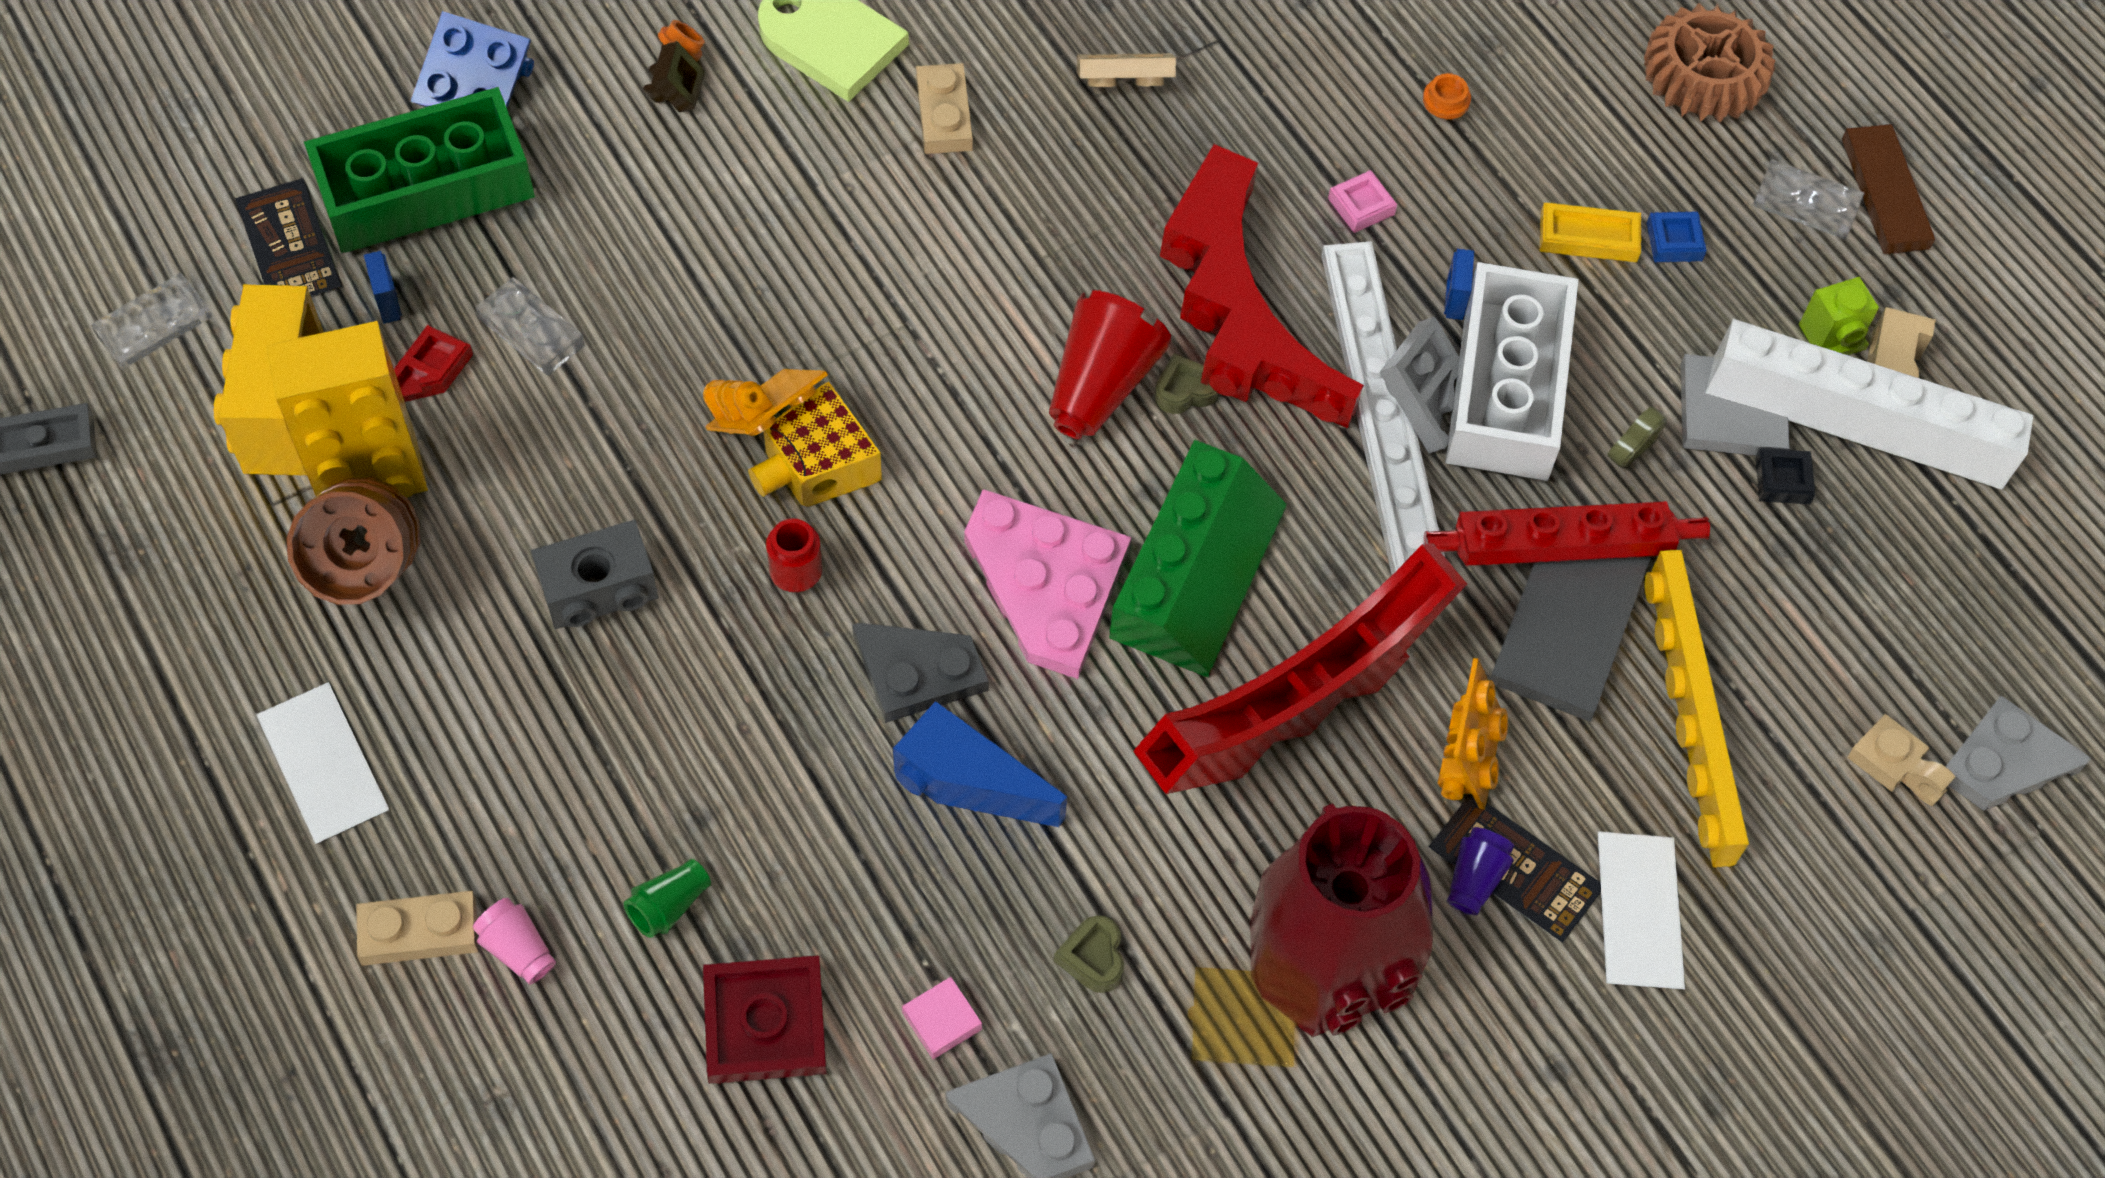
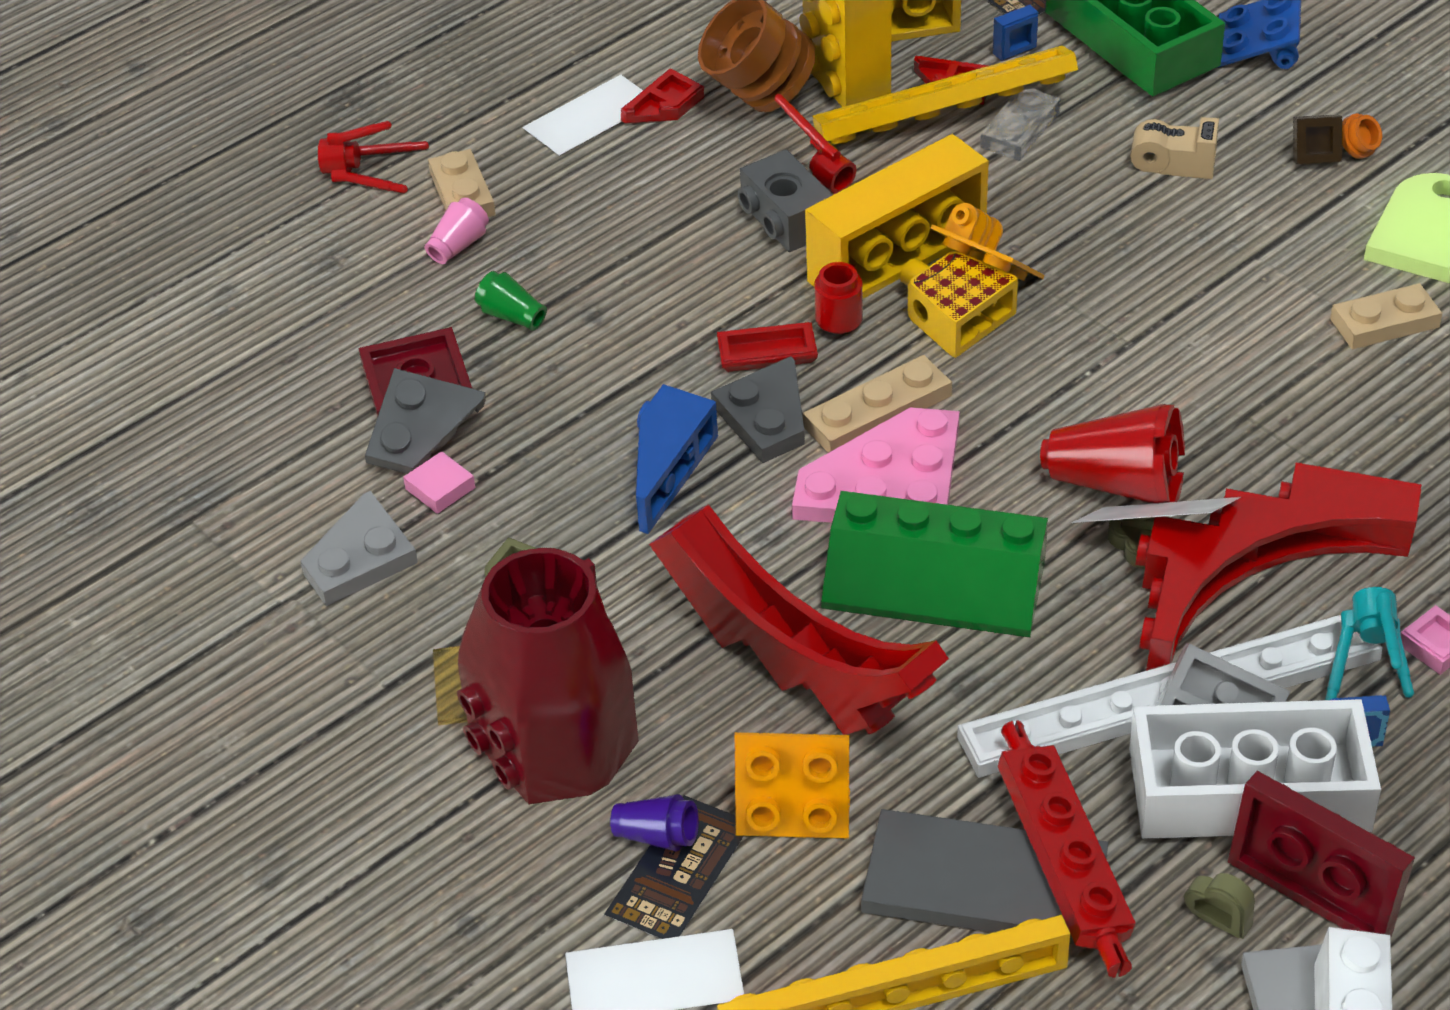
camera: 85 degrees right, 15 degrees down
(308, 1061) = (340, 155): none -> red plant
(337, 670) = (664, 99): none -> red tile
(476, 381) = (959, 90): none -> yellow plate
(547, 521) = (828, 163): none -> red plant
(641, 195) = (1176, 149): none -> tan leg
(696, 469) = (890, 213): none -> yellow brick
(821, 646) = (766, 345): none -> red tile
(855, 1022) = (418, 419): none -> dark grey wing
(940, 562) = (874, 402): none -> tan plate
(1193, 353) = (1157, 509): none -> white sticker
(1360, 228) = (1377, 622): none -> teal plant
(1627, 347) = (1319, 858): none -> dark red plate

